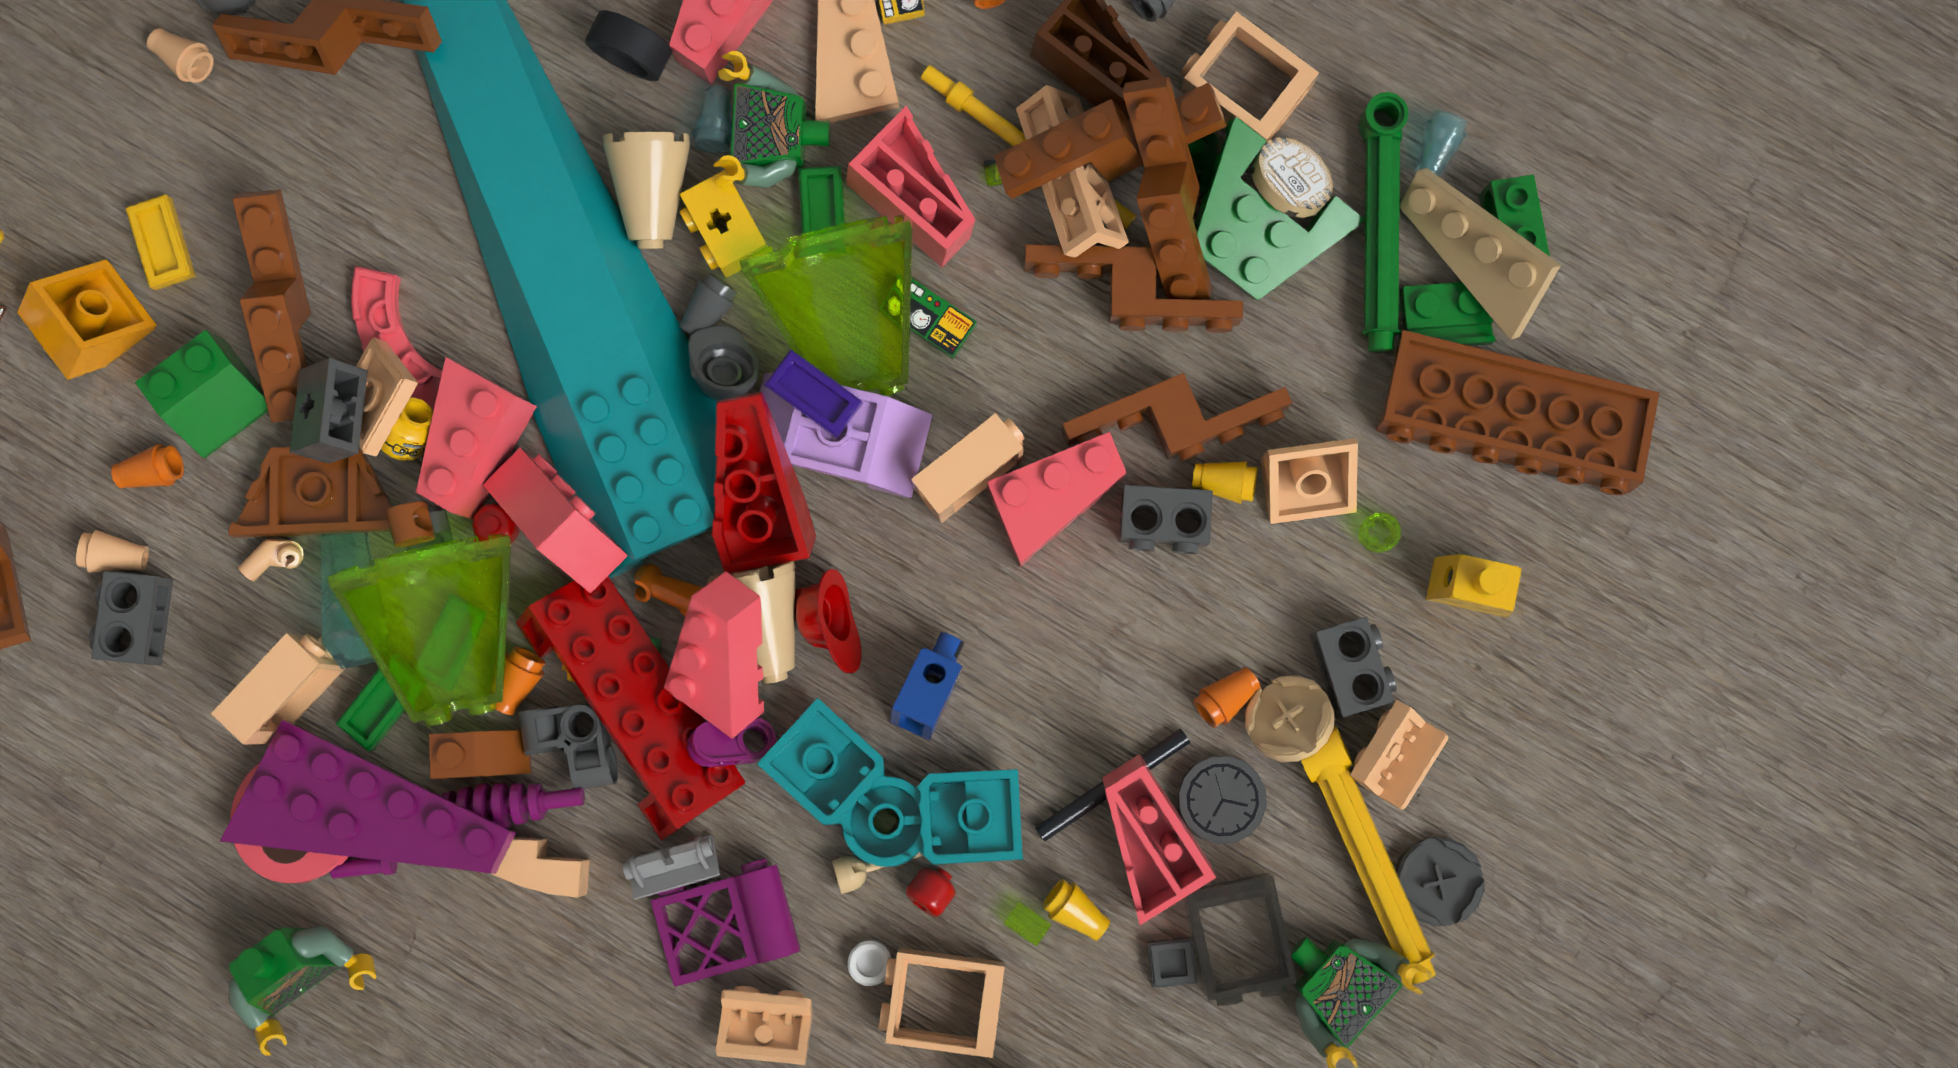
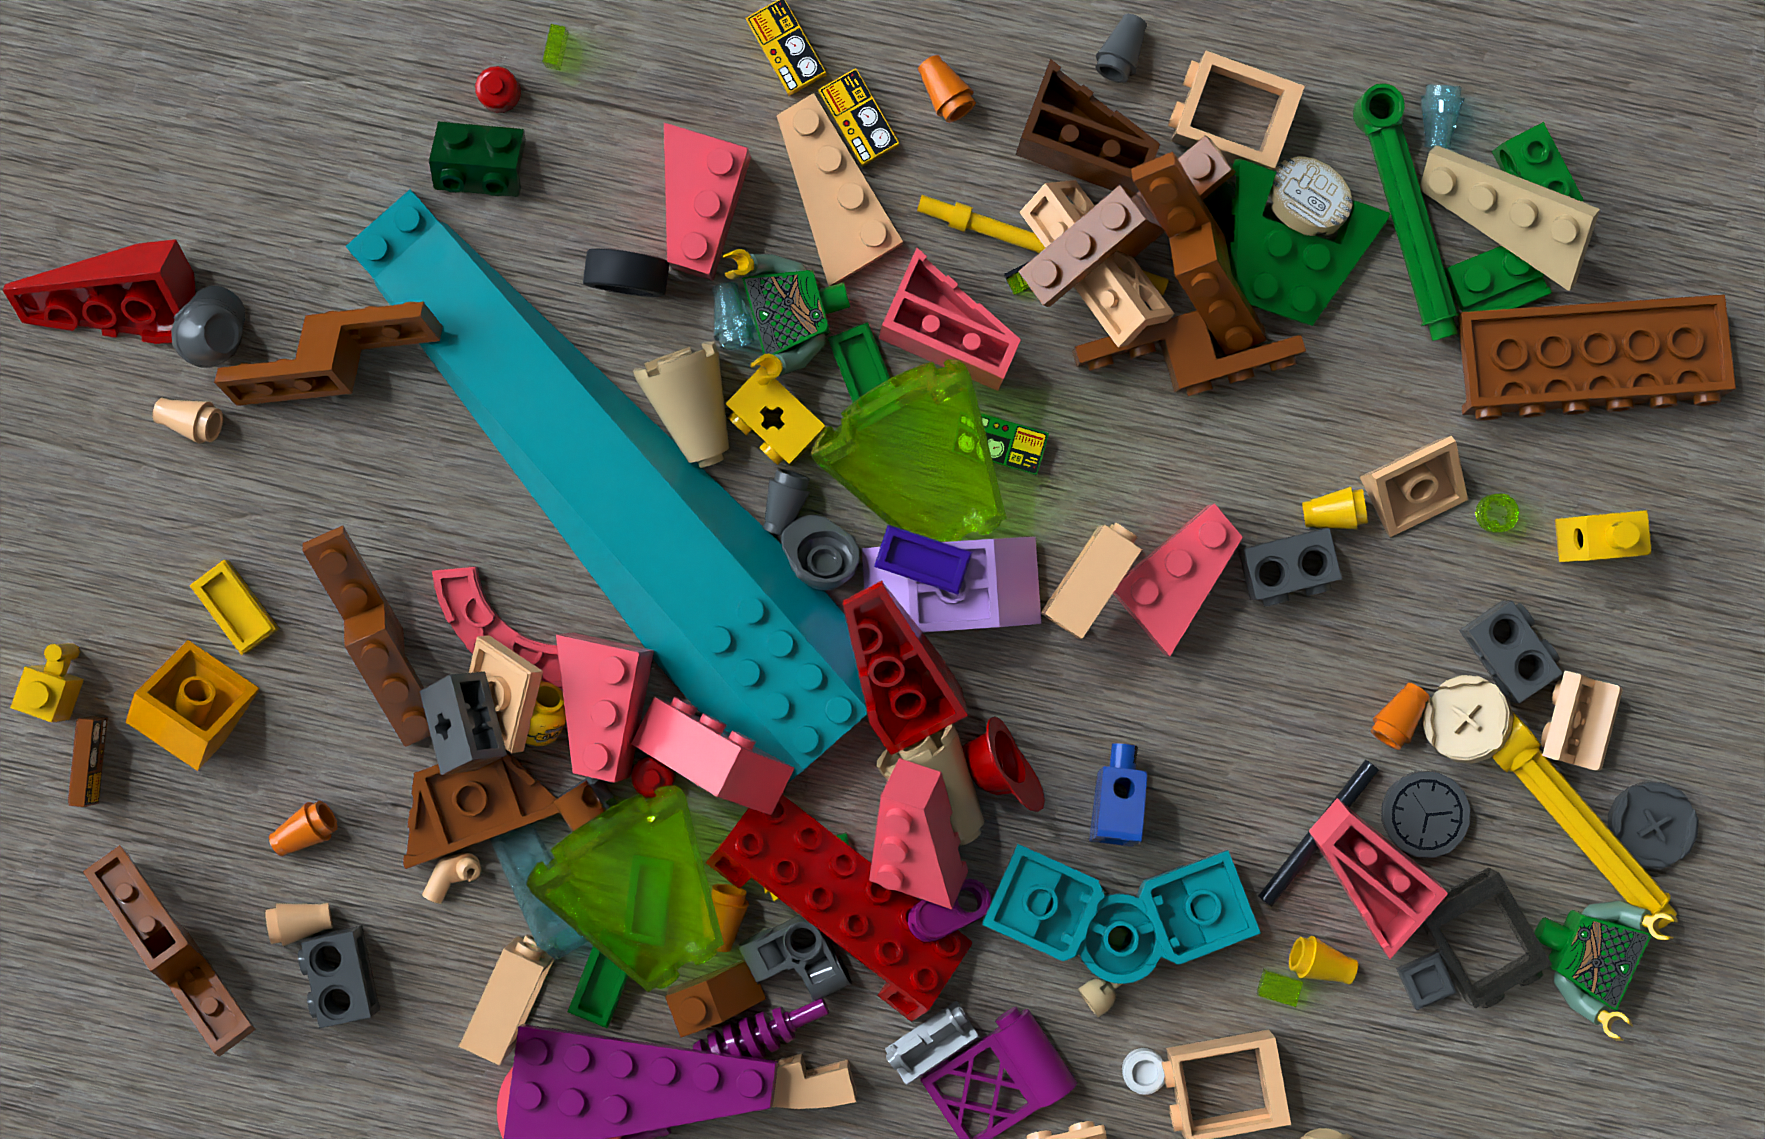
camera: 20 degrees left, 5 degrees up
(204, 393) = (333, 740): green slope -> none
(663, 588) = (854, 786): orange piece -> none
(931, 891) = (1180, 987): red piece -> none
(1177, 417) = (1271, 466): dark orange bracket -> none

